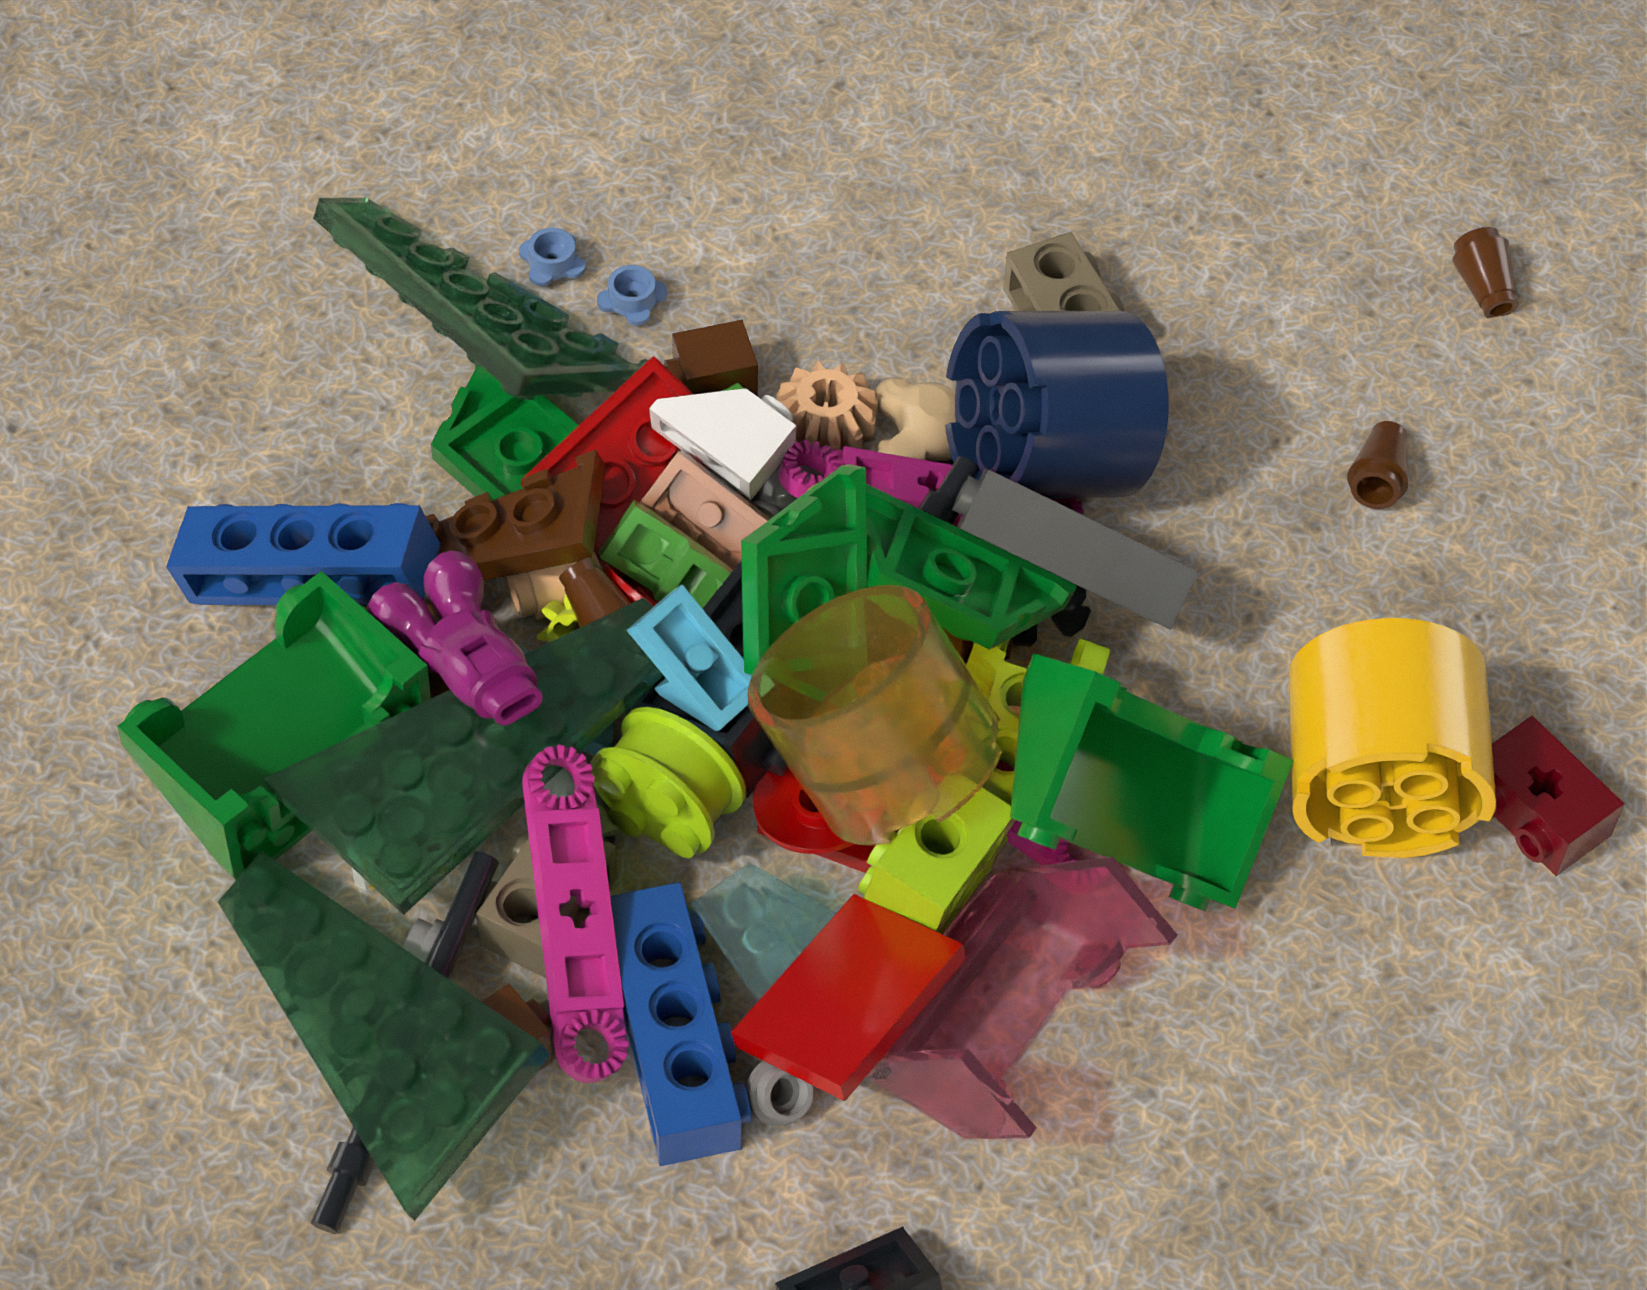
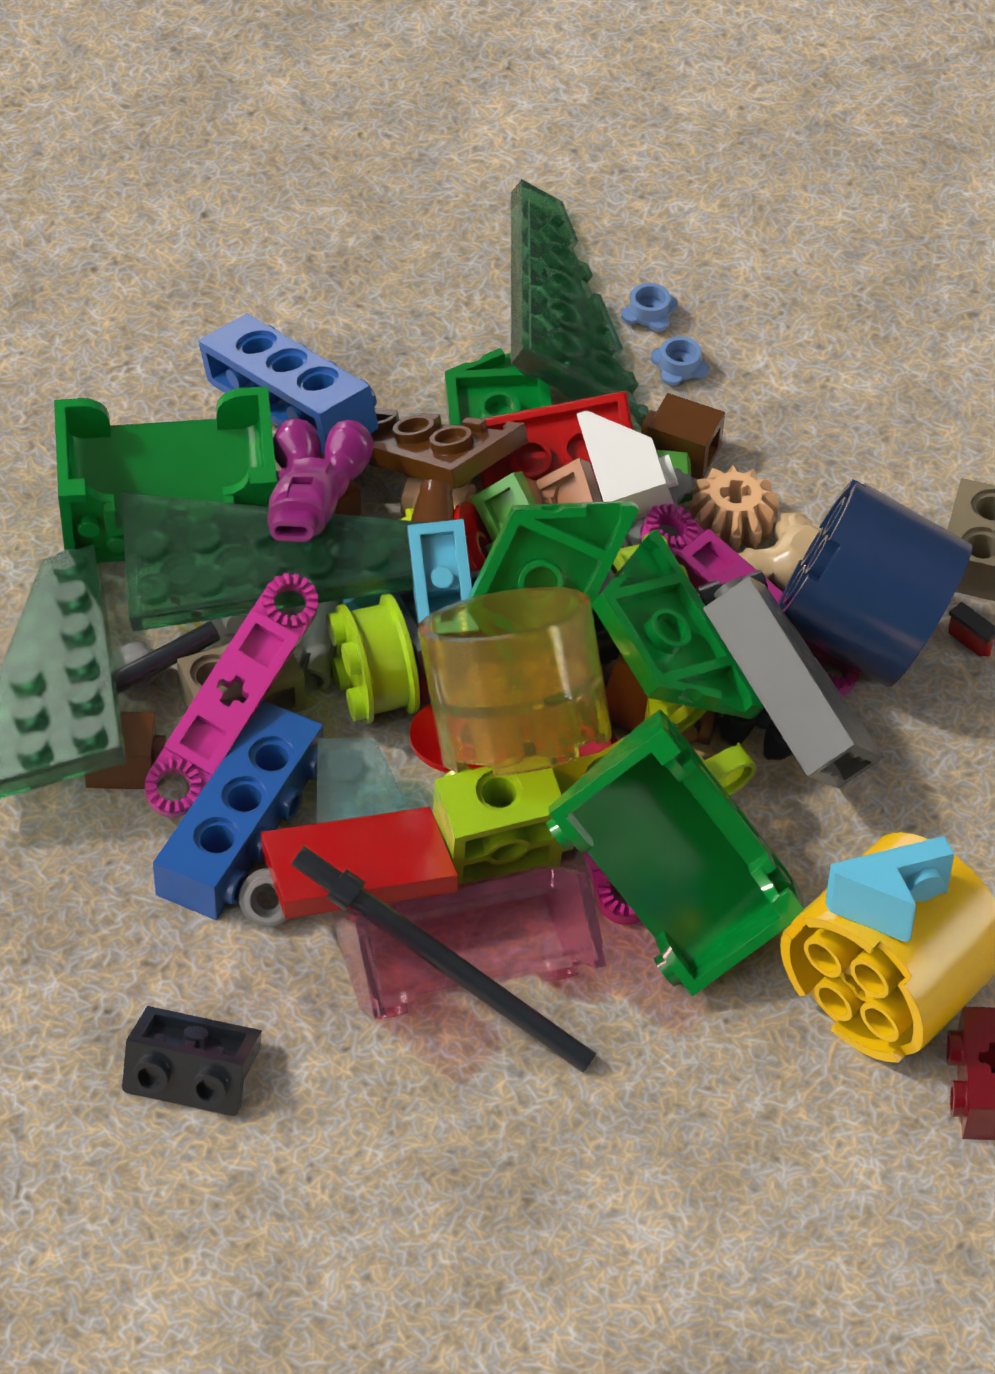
camera: 40 degrees right, 5 degrees down
(898, 1032) = (347, 891): none -> black bar
(1405, 693) = (884, 885): none -> medium azure slope

